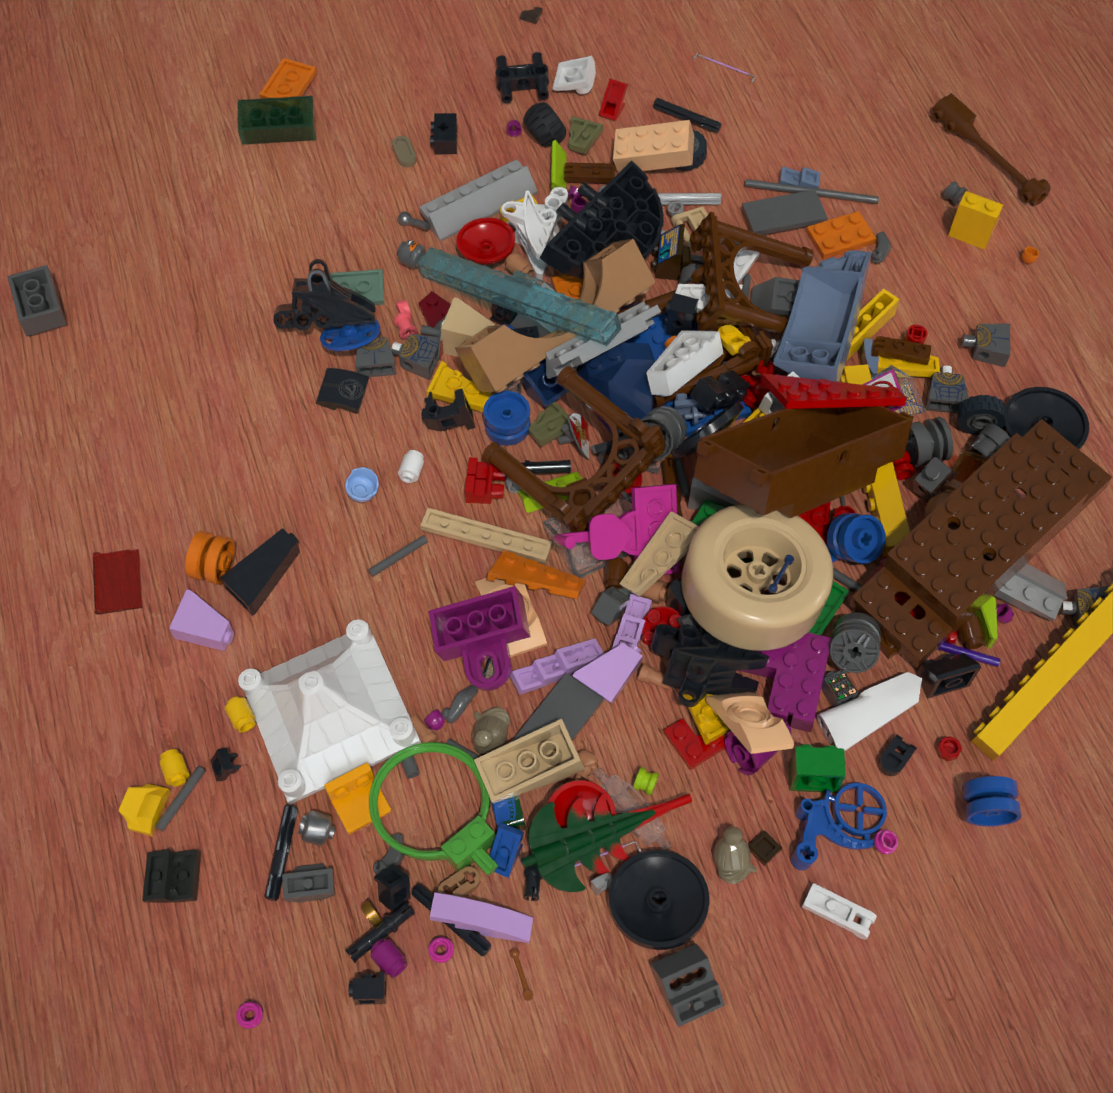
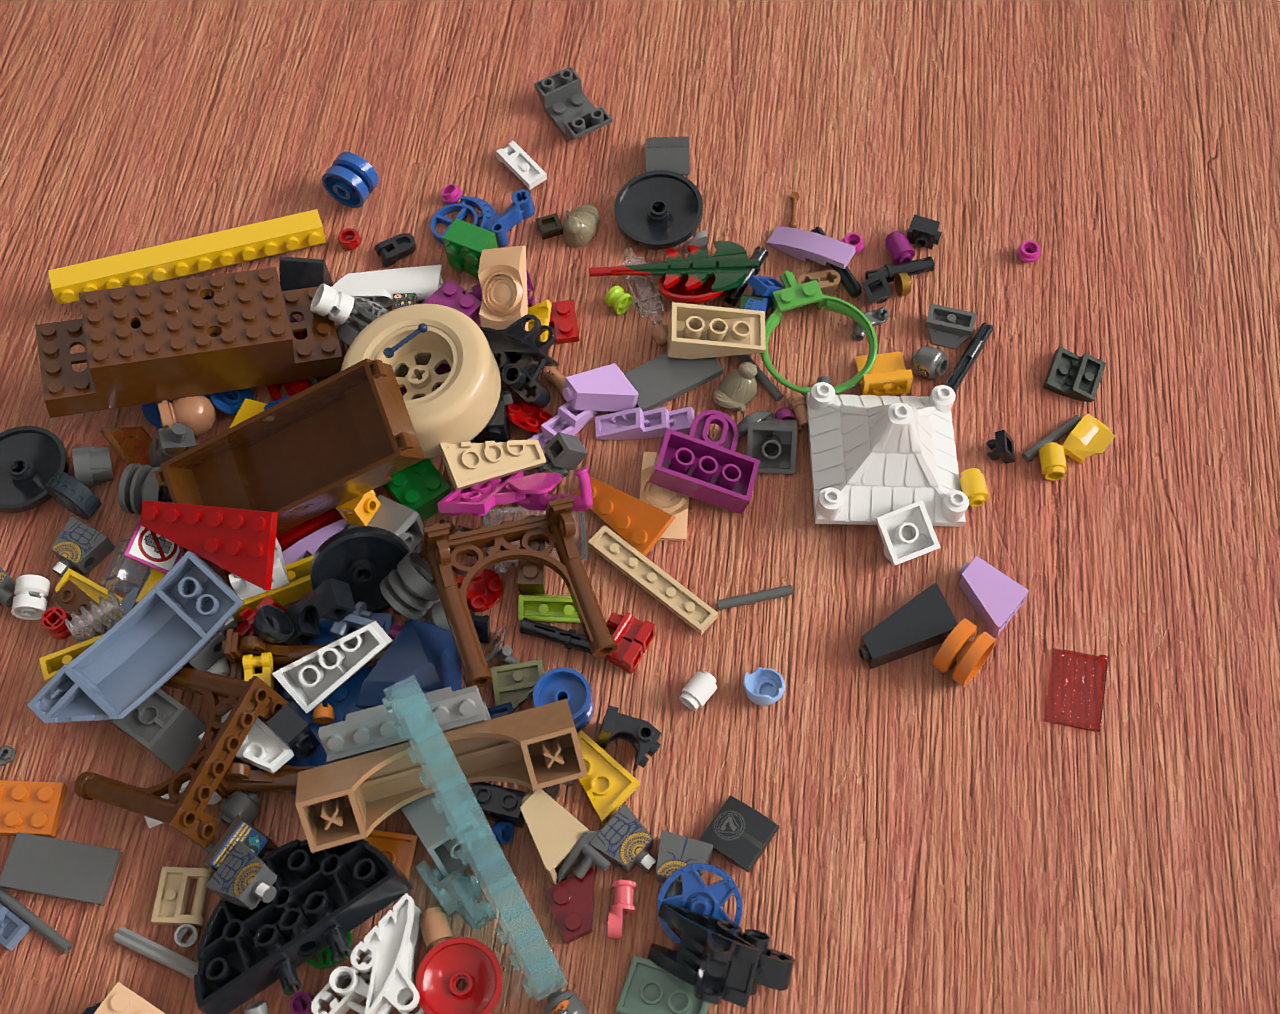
camera: 150 degrees left, 0 degrees up
(284, 638) = (907, 533): none -> white slope
(432, 686) = (774, 445): none -> dark grey slope
(651, 226) = (243, 879): none -> dark grey torso
(742, 363) = (272, 624): none -> black piece
(825, 1008) = (568, 105): none -> dark grey slope
(882, 334) = (96, 618): none -> clear piece
(889, 627) = (330, 303): none -> white wheel
(949, 344) = (30, 597): none -> white wheel

